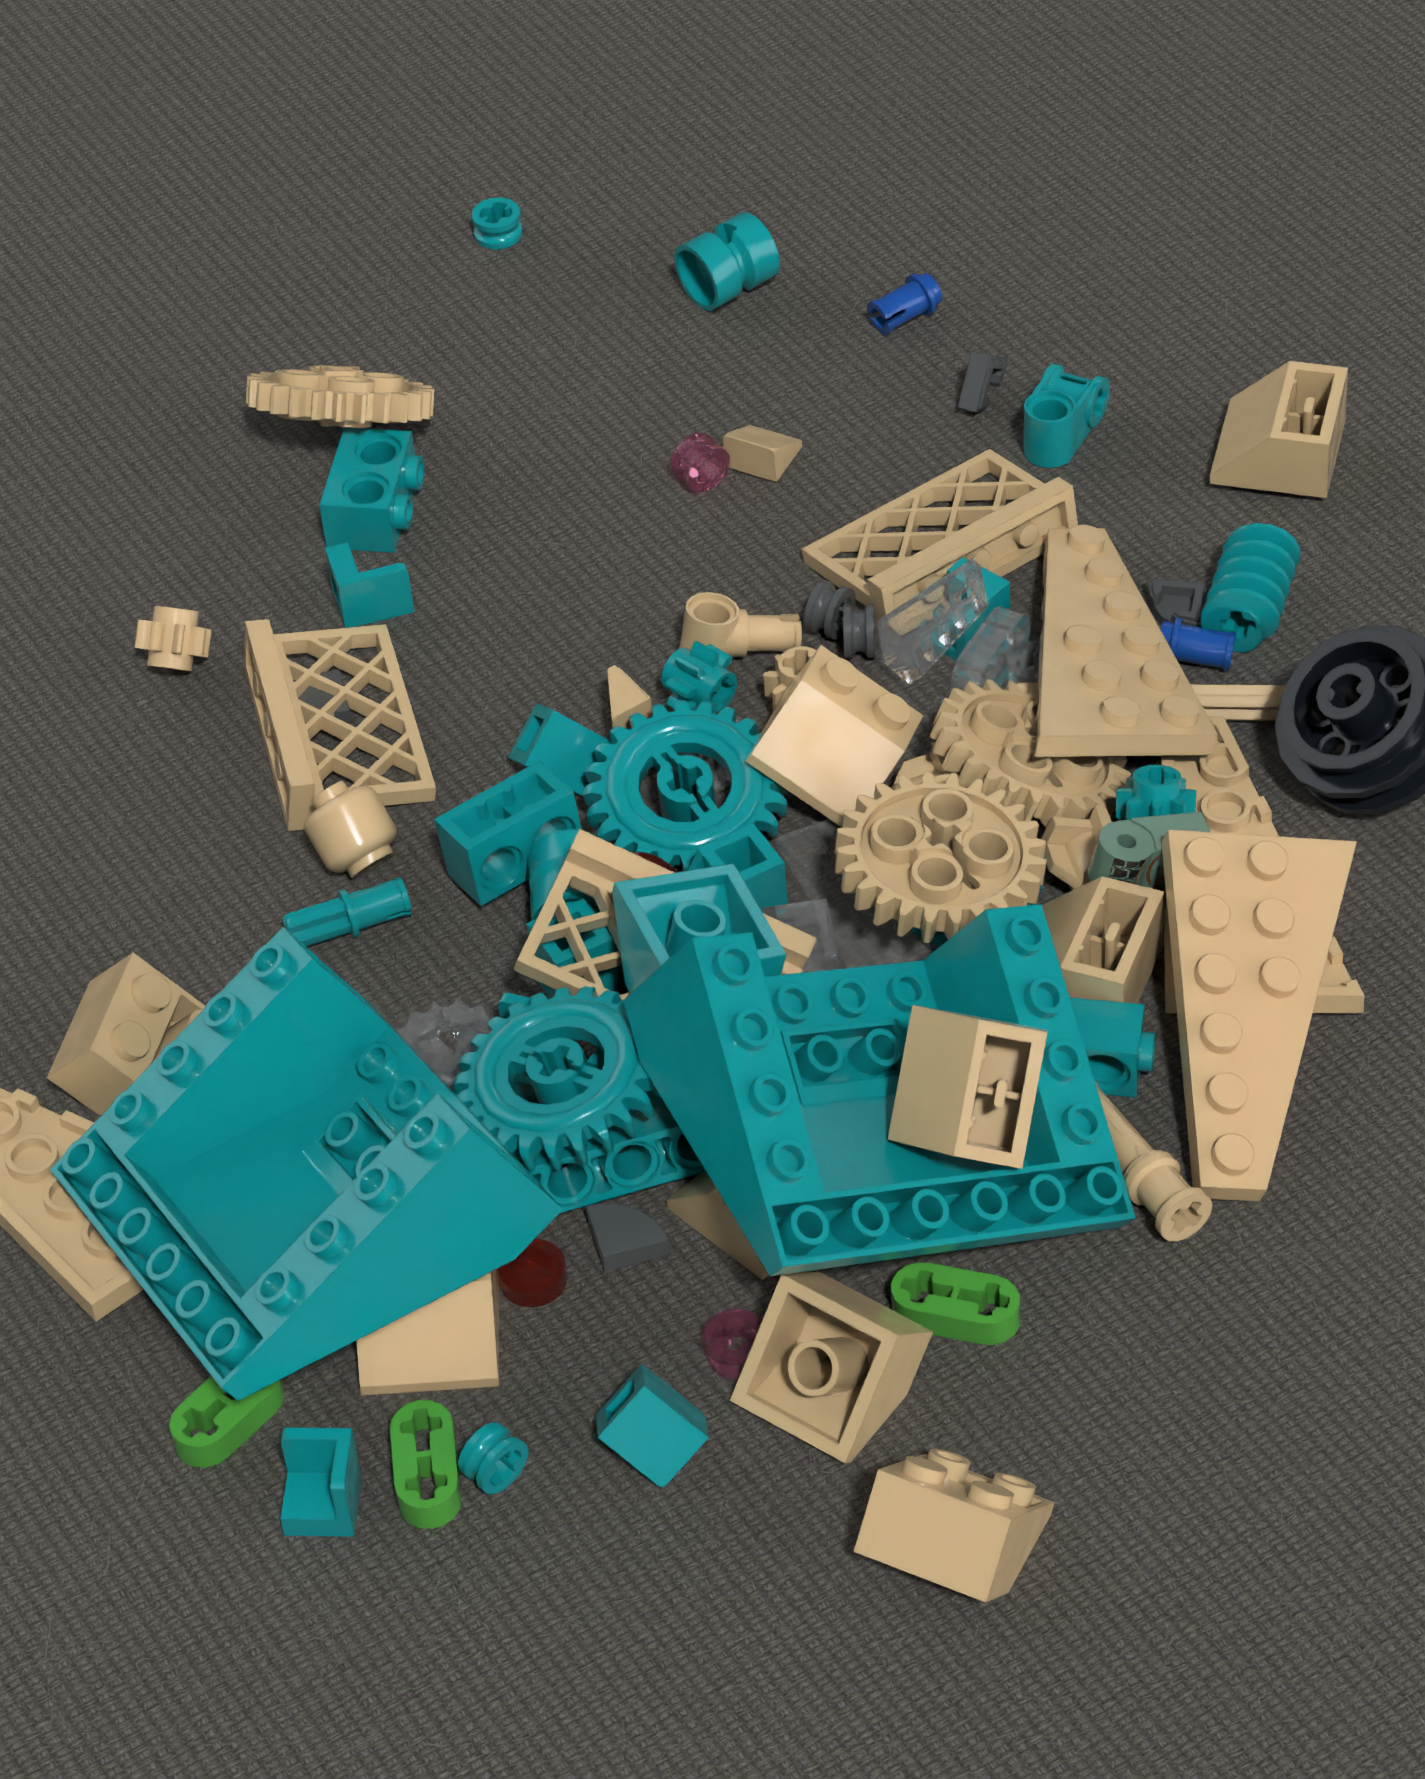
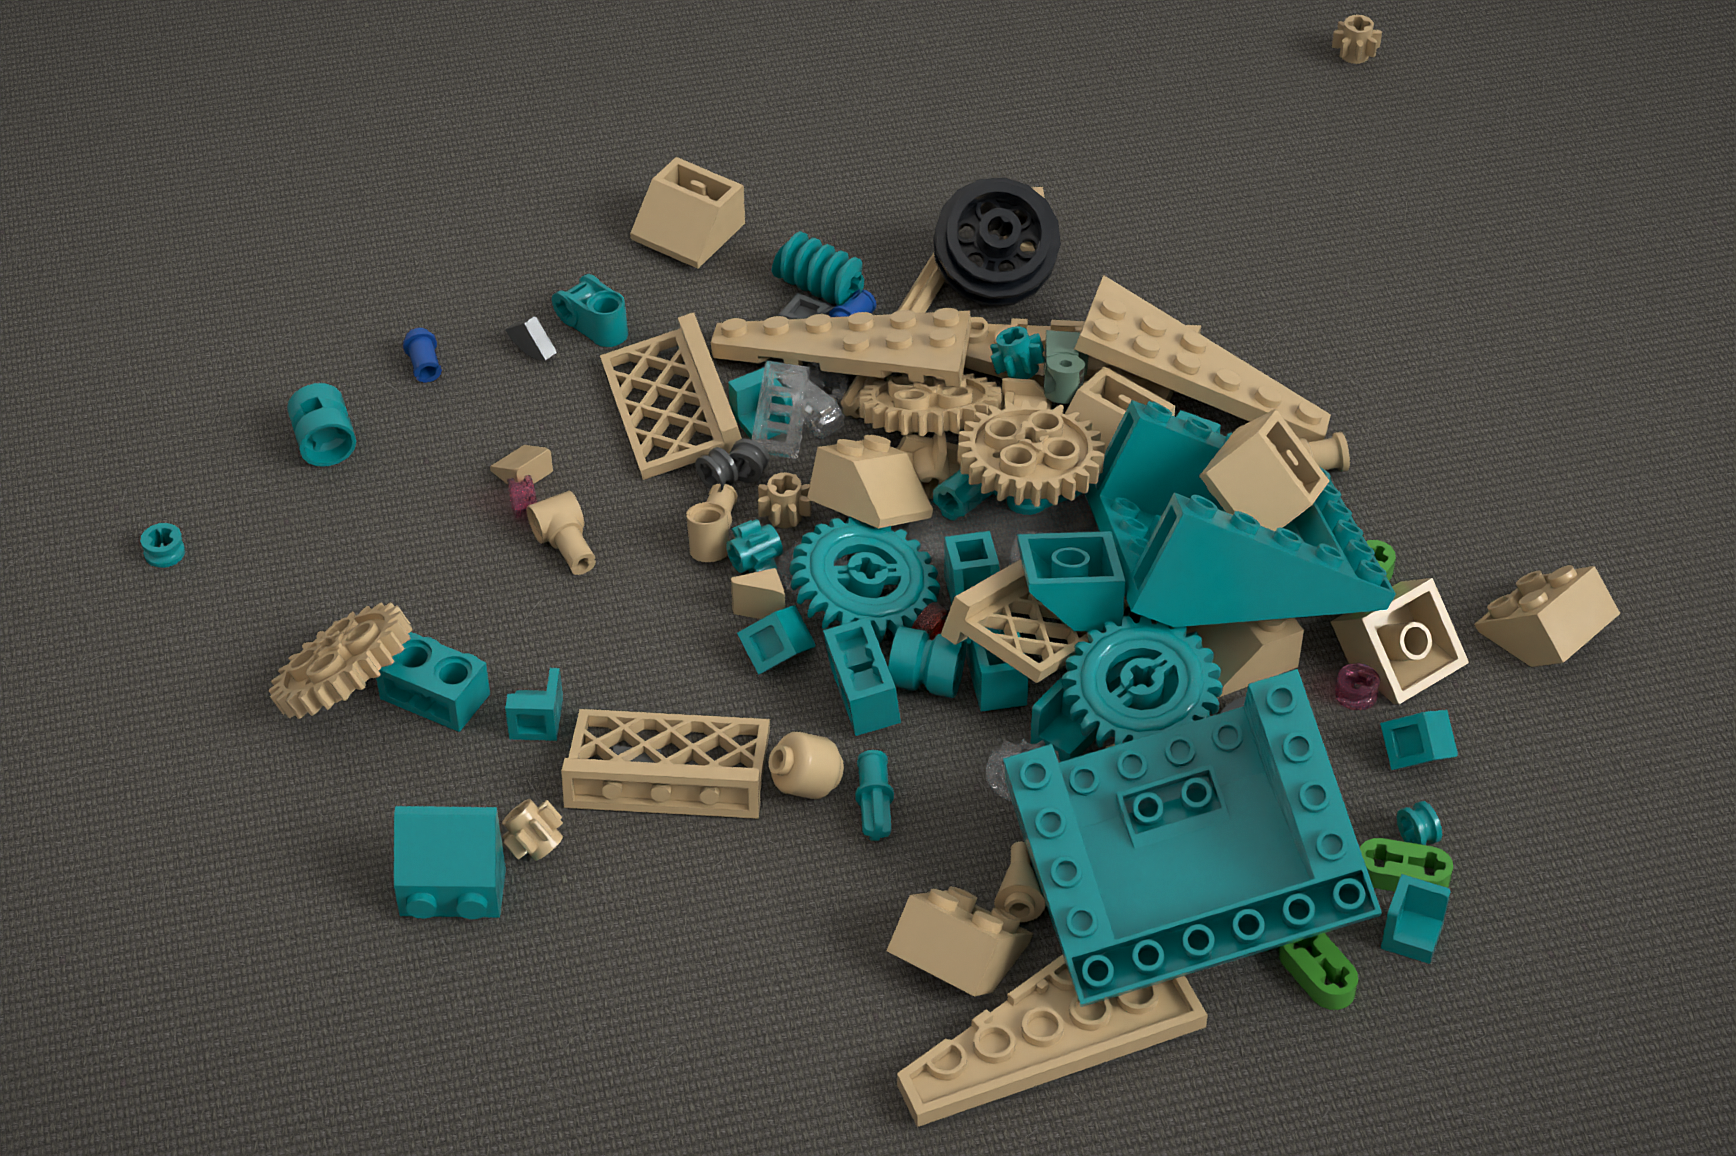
camera: 75 degrees left, 0 degrees up
(83, 588) = (448, 862): none -> teal slope
(666, 505) = (562, 524): none -> tan pin

